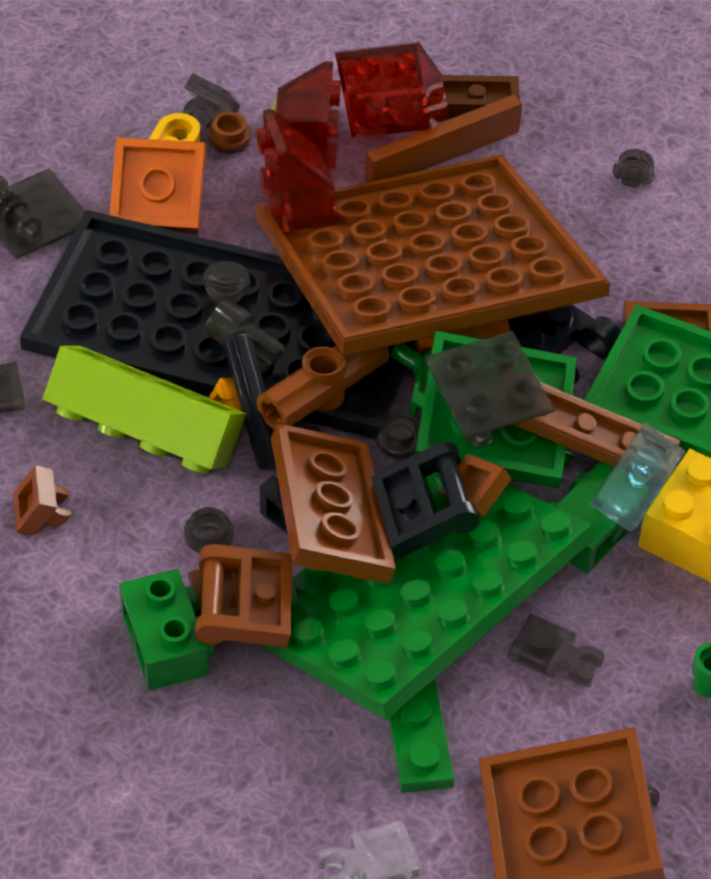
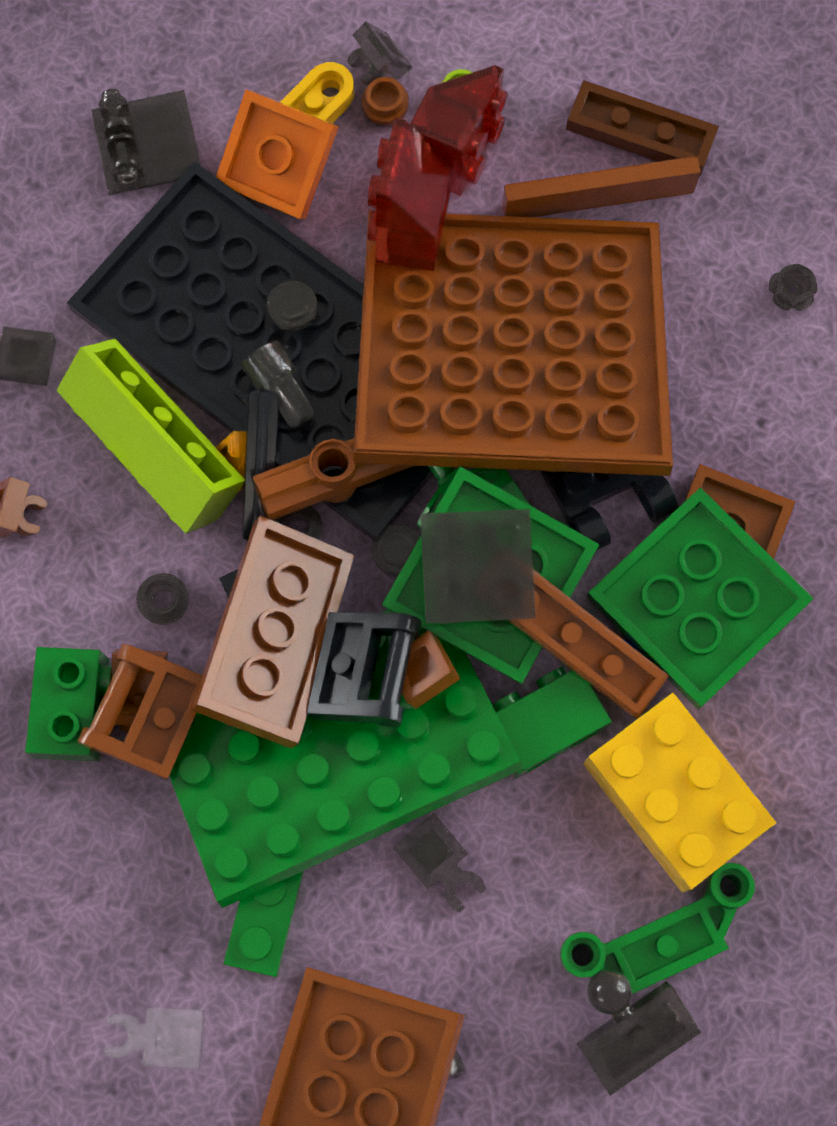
camera: 25 degrees right, 25 degrees up
(391, 89) = (560, 120): clear red slope -> none
(637, 477) = (596, 718): clear light blue plate -> none

